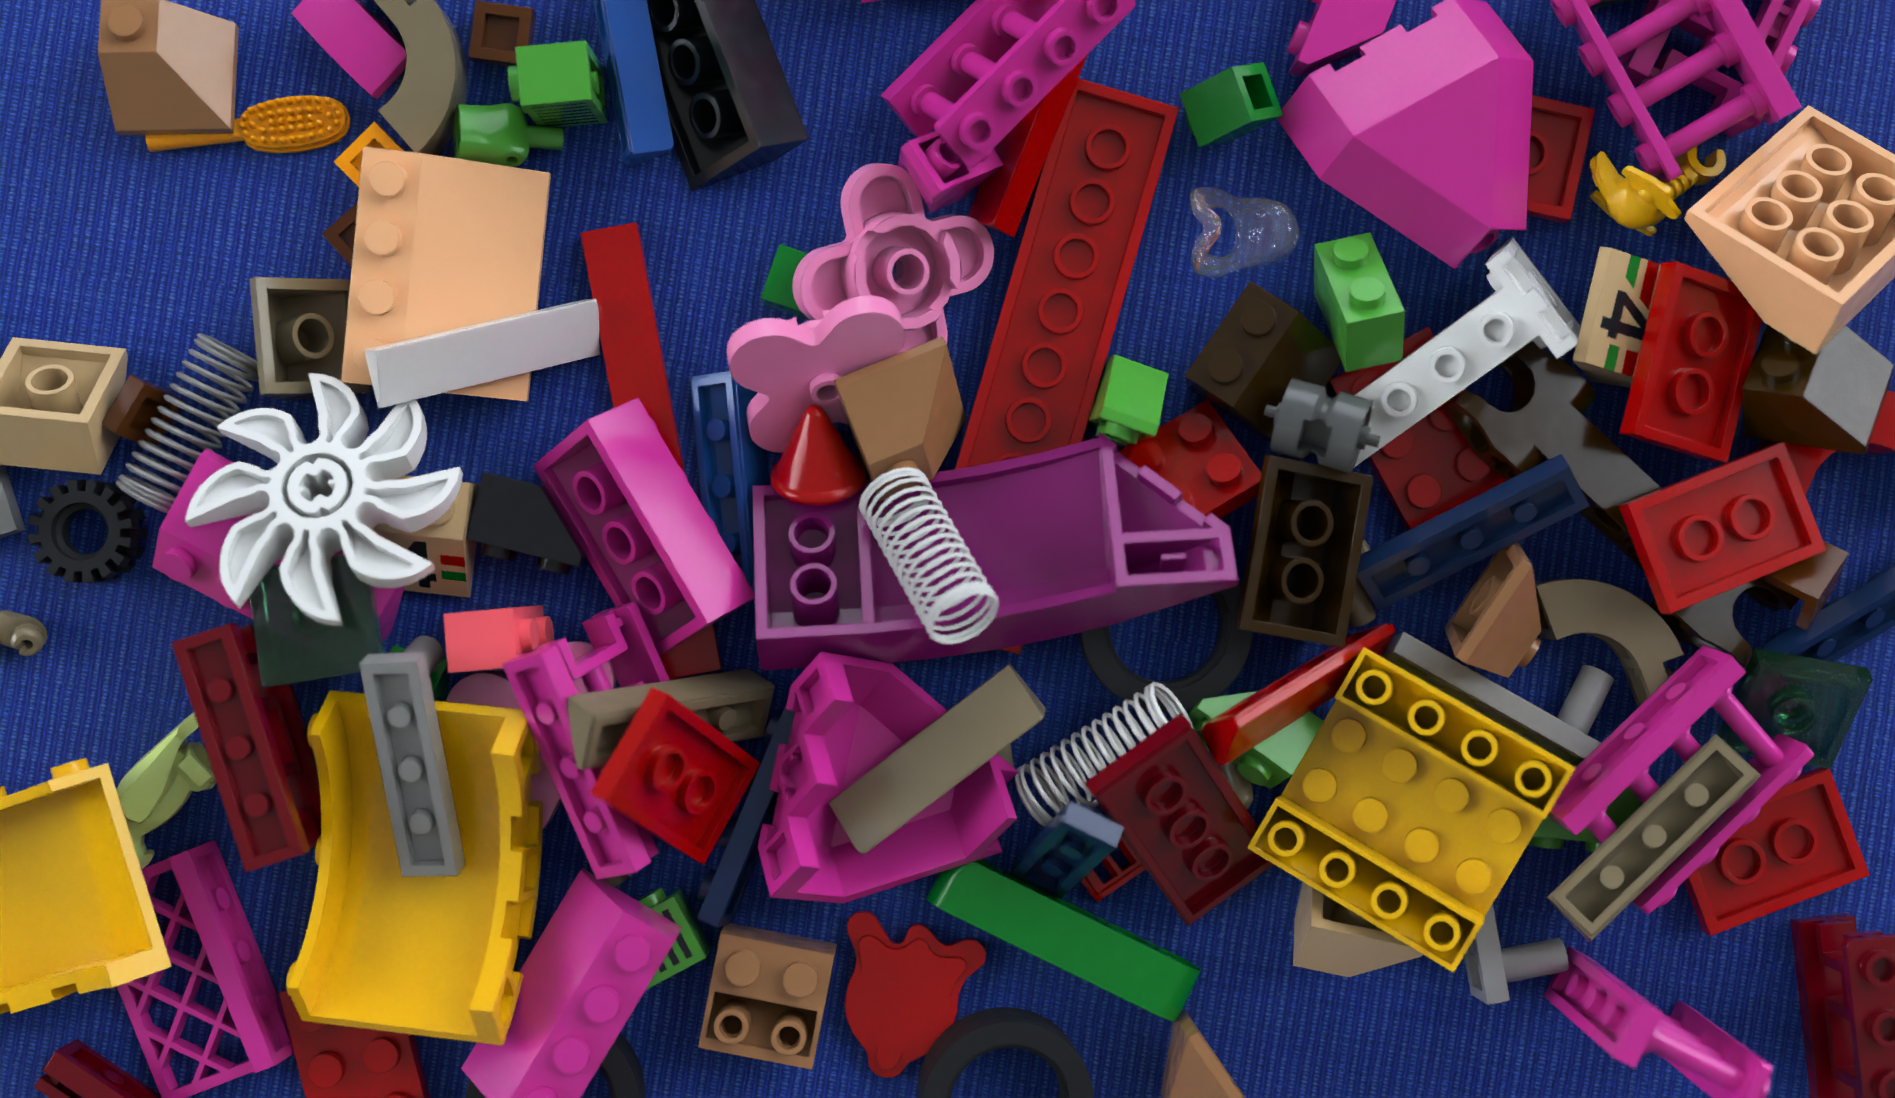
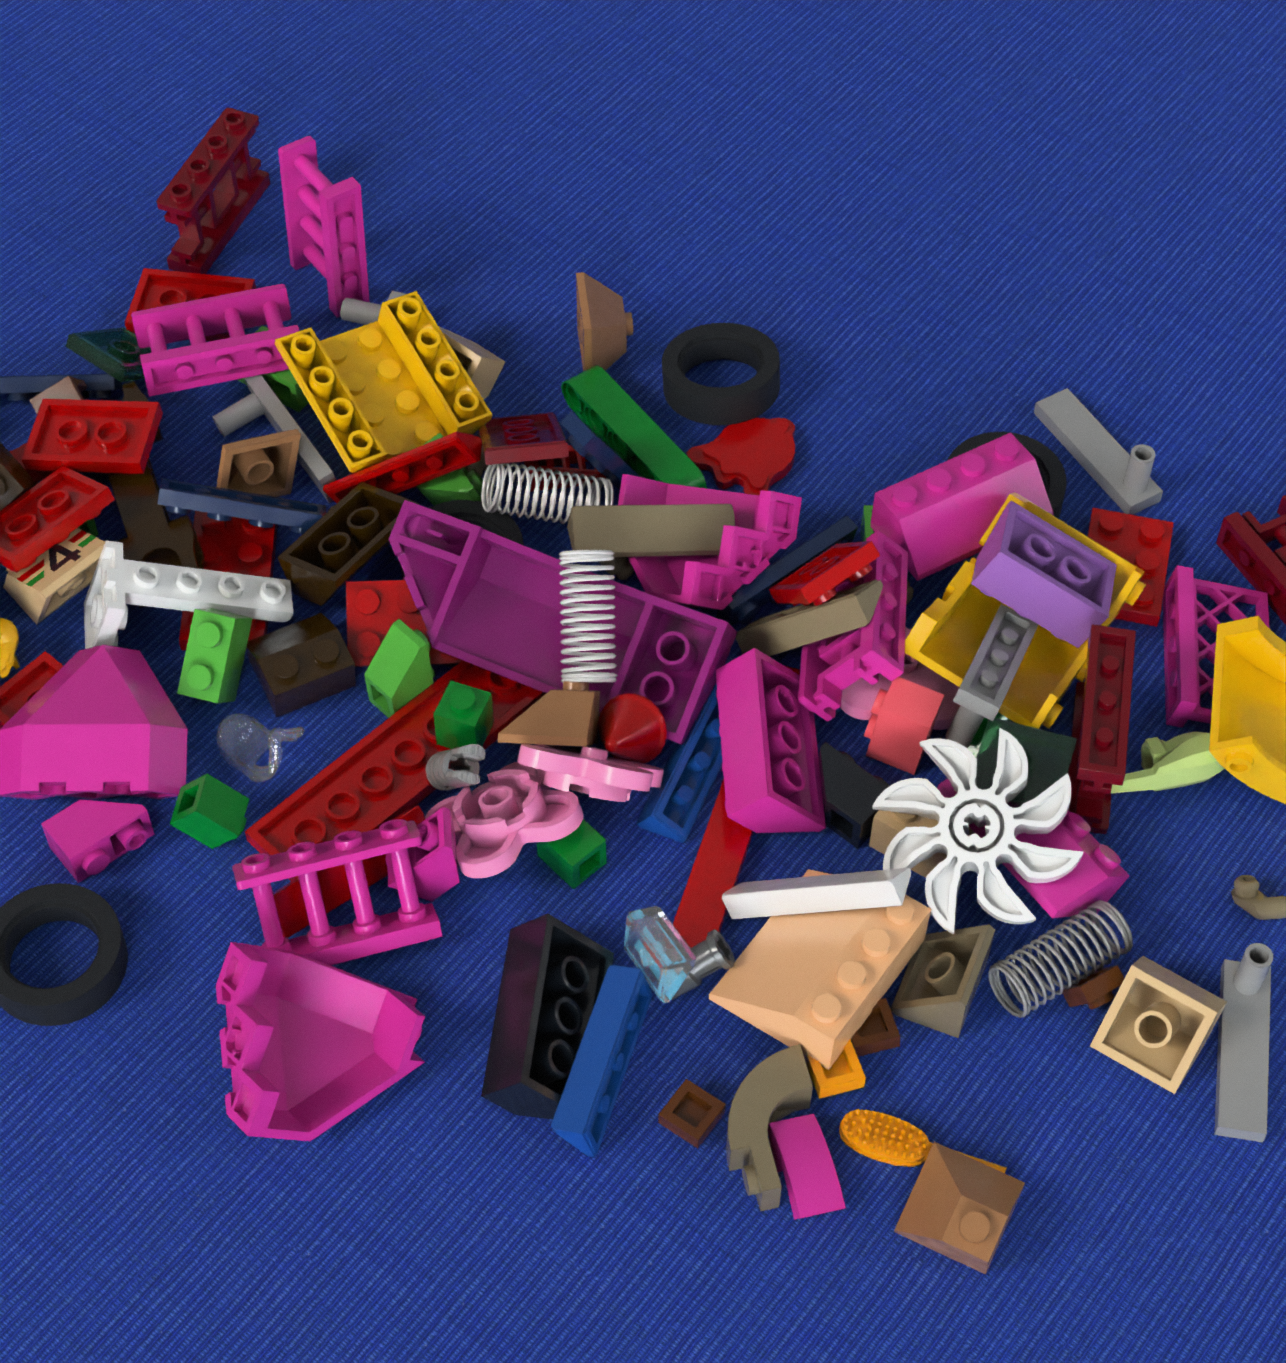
camera: 150 degrees left, 35 degrees down
(54, 531) = (1179, 913): black tyre -> none
(406, 927) = (1045, 575): none -> medium lavender slope
(499, 134) = (732, 1041): bright green piece -> none
(559, 84) = (667, 1037): bright green brick -> none
(583, 207) = (710, 956): none -> dark grey piece
(628, 194) = (658, 951): none -> clear slope
(767, 995) = (835, 476): medium nougat slope -> none
(978, 292) = (464, 761): none -> light grey hinge
(1011, 365) = (463, 716): none -> green brick
(1321, 425) = (285, 583): dark grey wheel -> none
(1616, 618) = (190, 446): dark tan arch -> none
(1653, 837) = (253, 310): dark tan slope -> none

